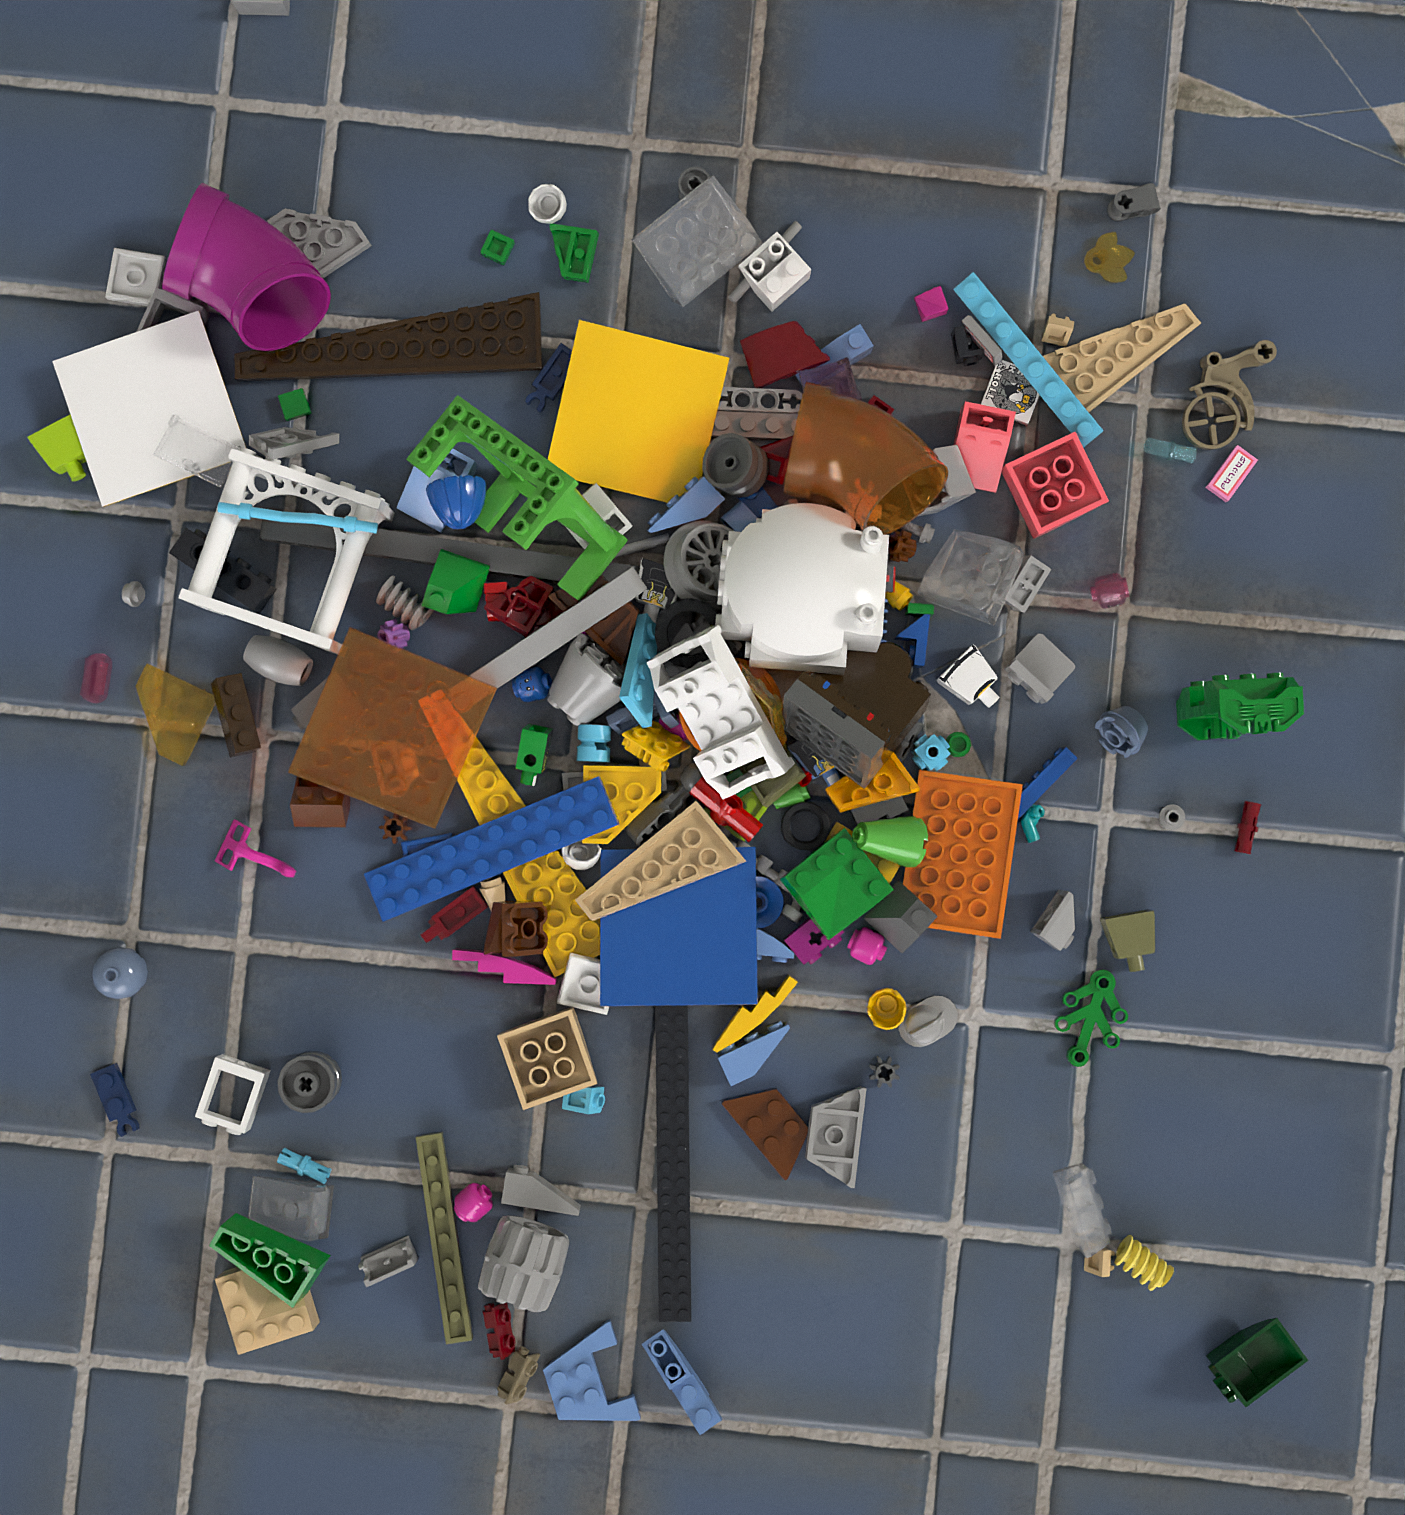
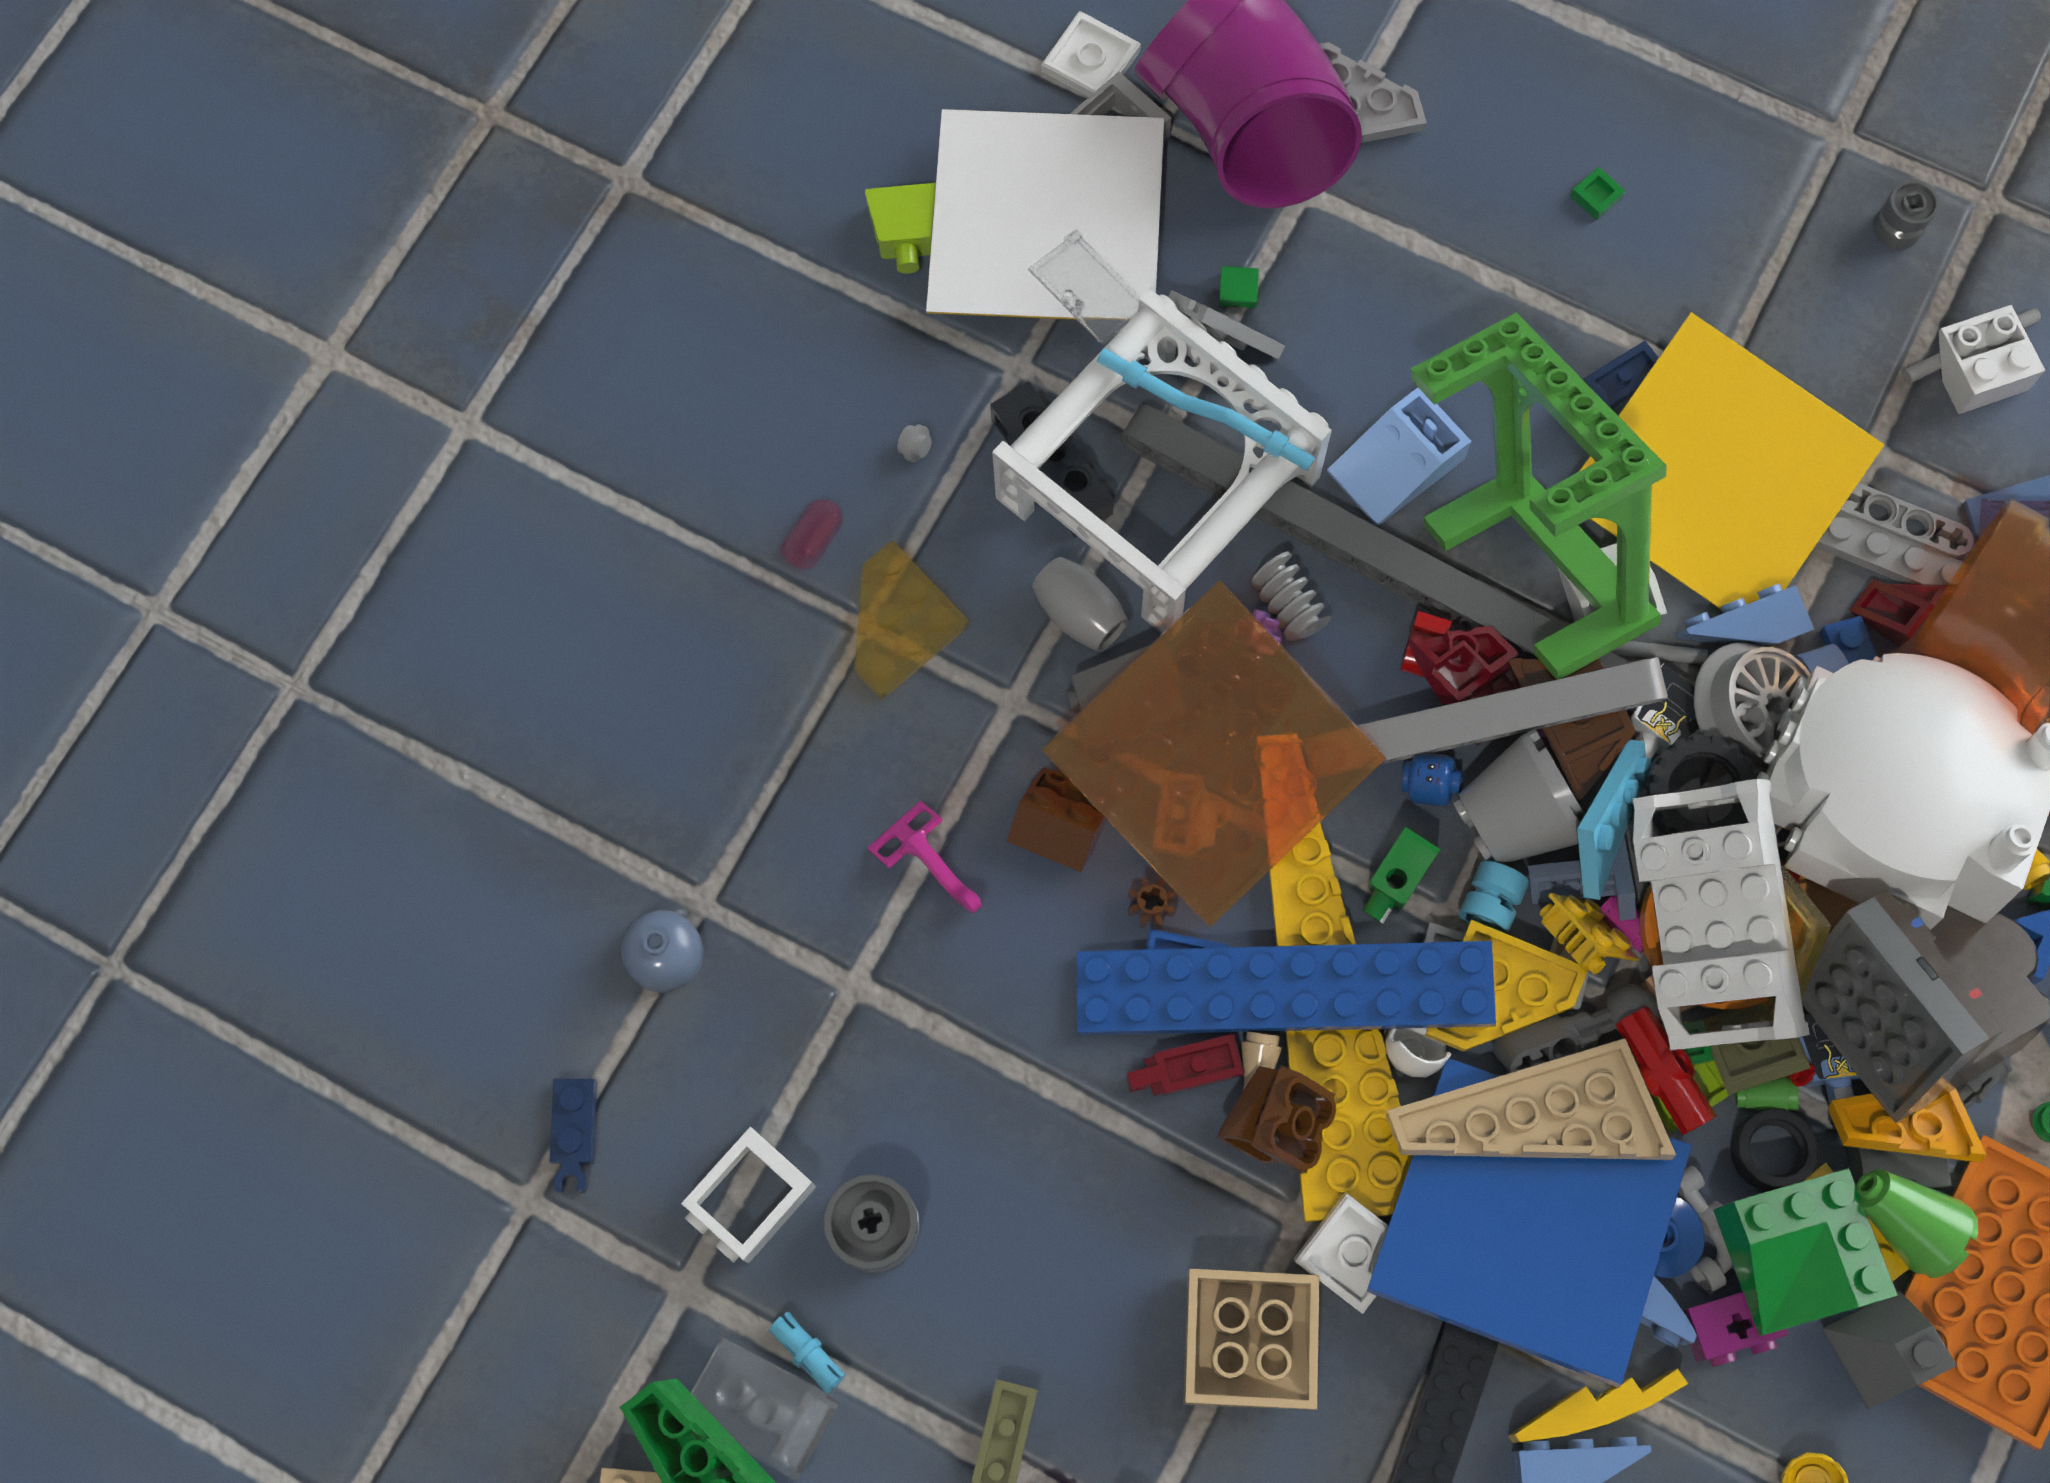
camera: 25 degrees right, 15 degrees down
(235, 715) = (988, 655): dark brown brick -> none
(455, 584) = (1377, 597): green slope -> none
(457, 499) = (1426, 481): blue hair -> none
(467, 340) = (1468, 281): dark brown wing -> none
(513, 969) = (1248, 1185): dark pink slope -> none
(547, 203) = (1690, 161): white hair -> none
(575, 251) = (1706, 233): green wing -> none
(586, 1101) = (1279, 1431): medium azure bracket -> none
(697, 241) = (1891, 277): clear slope -> none
(735, 465) = (1847, 588): dark grey wheel -> none
(780, 353) = (1959, 468): dark red slope -> none
(867, 945) = (1814, 1375): dark pink head -> none
(921, 755) = (2011, 1114): medium azure brick -> none

